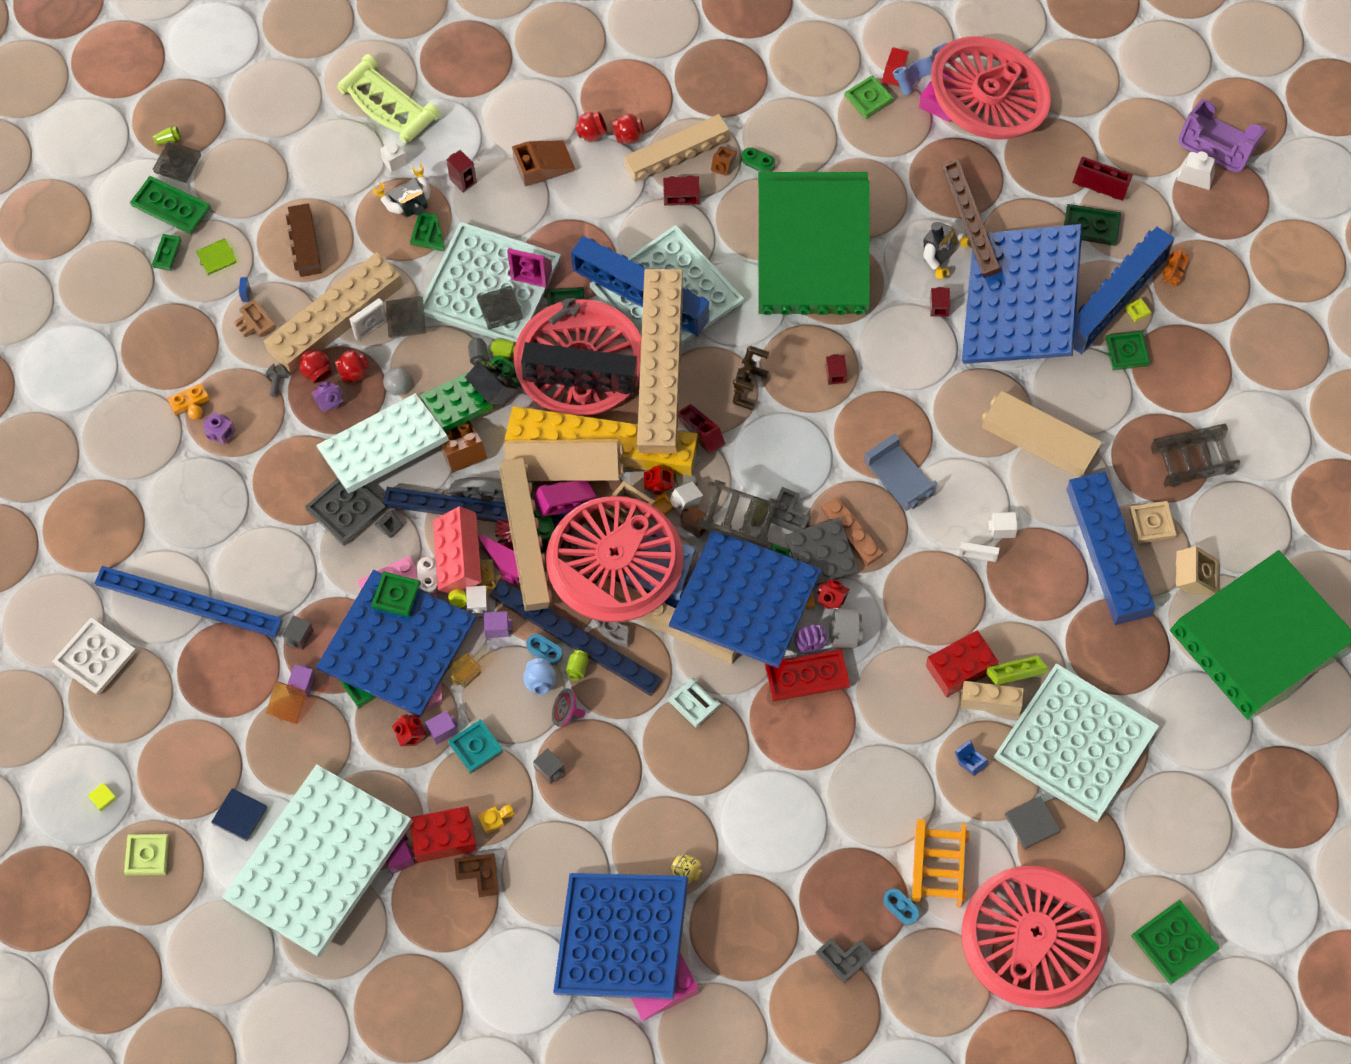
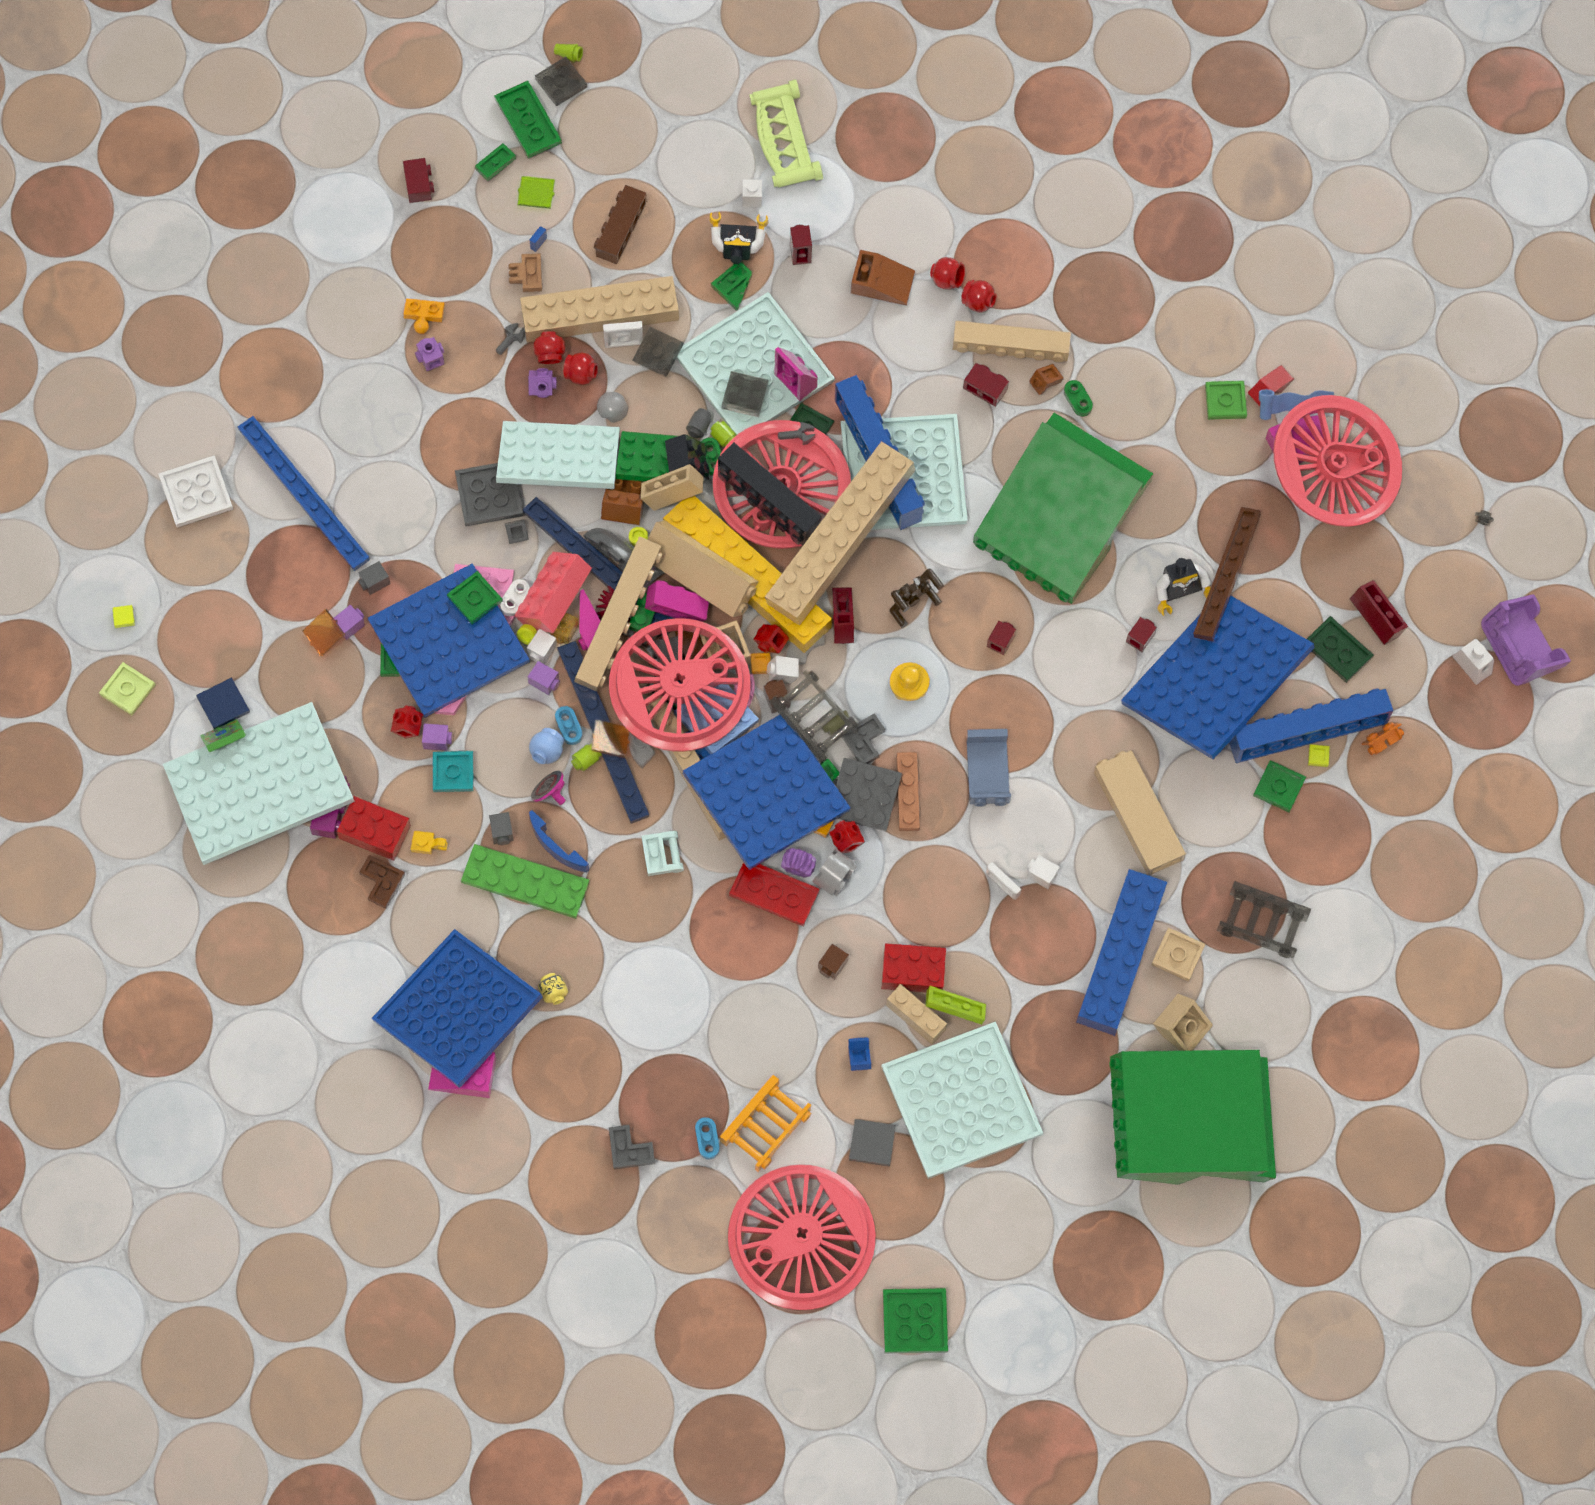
camera: 30 degrees right, 5 degrees up
(111, 302) = (417, 180): none -> dark red brick
(260, 839) = (223, 735): none -> bright green tile
(464, 671) = (488, 701): clear yellow brick -> none
(491, 468) = (635, 533): none -> neon yellow tile
(496, 410) = (672, 487): none -> tan brick
(587, 637) = (610, 739): none -> clear orange piece
(598, 797) = (525, 881): none -> bright green plate
(629, 753) = (573, 860): none -> blue slope
(790, 446) = (909, 681): none -> yellow plate
(895, 699) = (832, 962): none -> reddish brown brick
(1122, 67) = (1484, 518): none -> clear smoke plate

